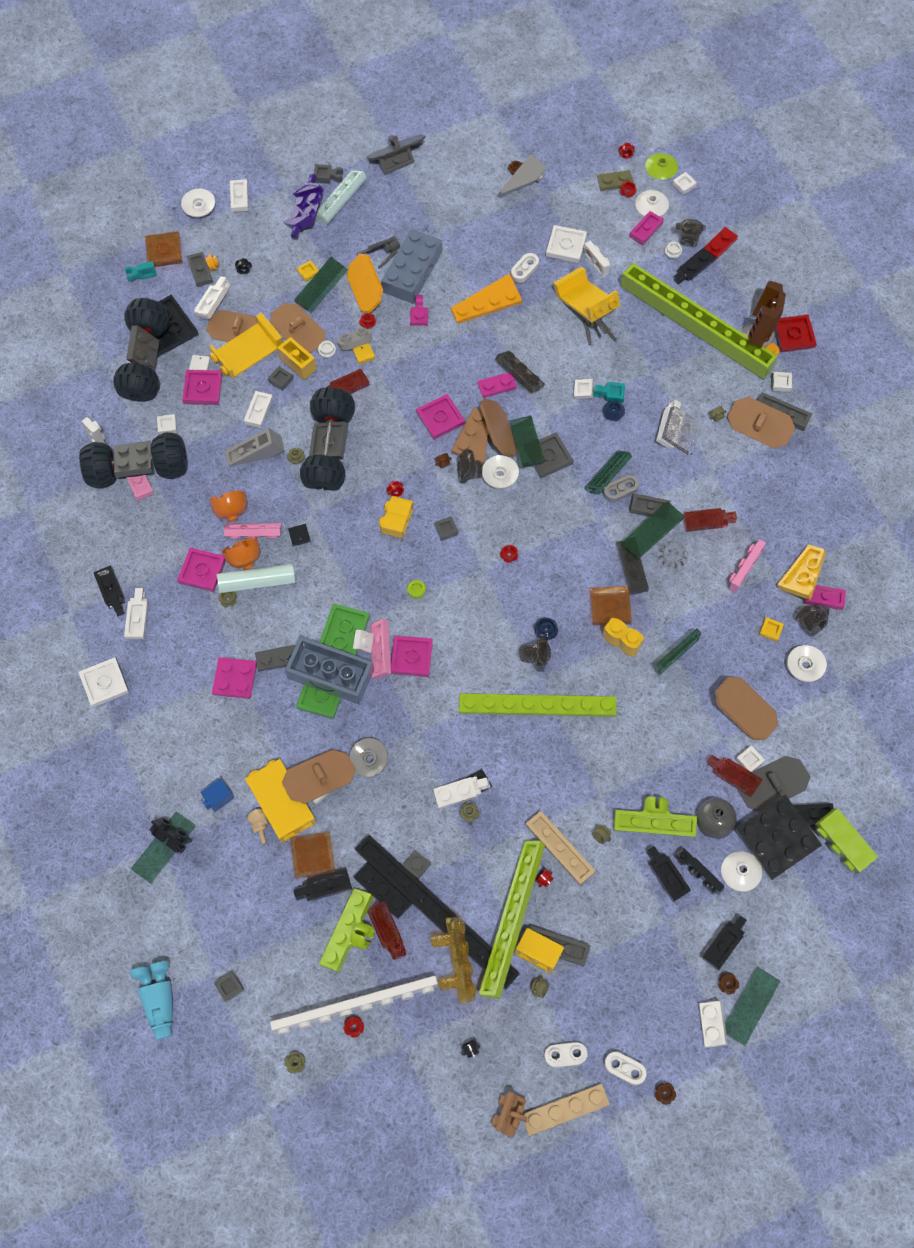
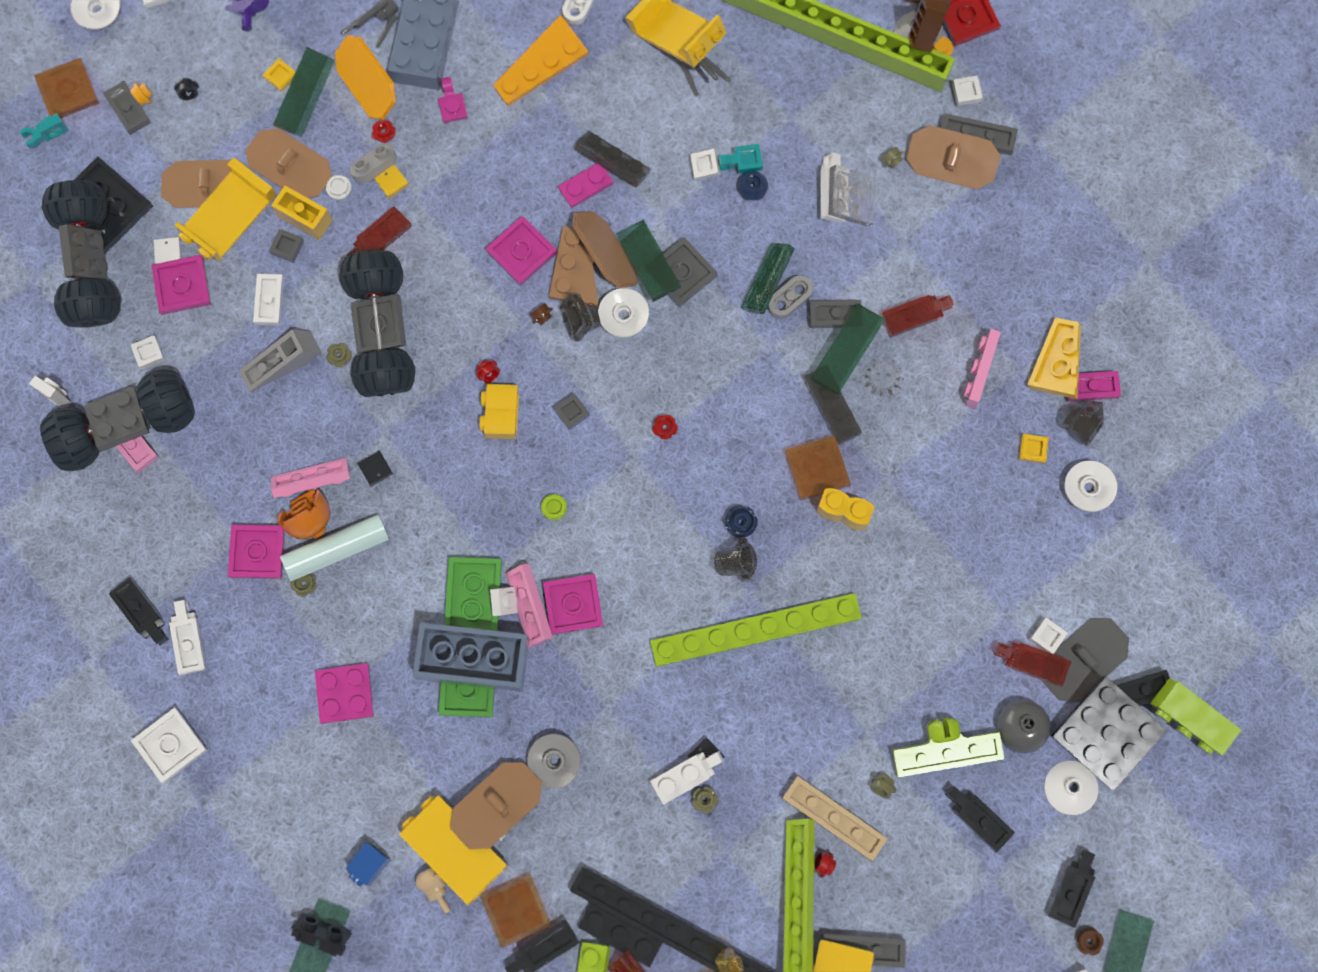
camera: 15 degrees left, 10 degrees up
(212, 298) = (157, 149): white hinge -> none
(229, 505) = (269, 452): orange cylinder -> none
(273, 658) = (393, 650): dark grey plate -> none
(417, 865) = (655, 889): dark grey plate -> none
(678, 651) = (921, 511): clear green tile -> none
(698, 870) = (1017, 803): black hinge -> none
(746, 708) = (1028, 568): medium nougat shield -> none

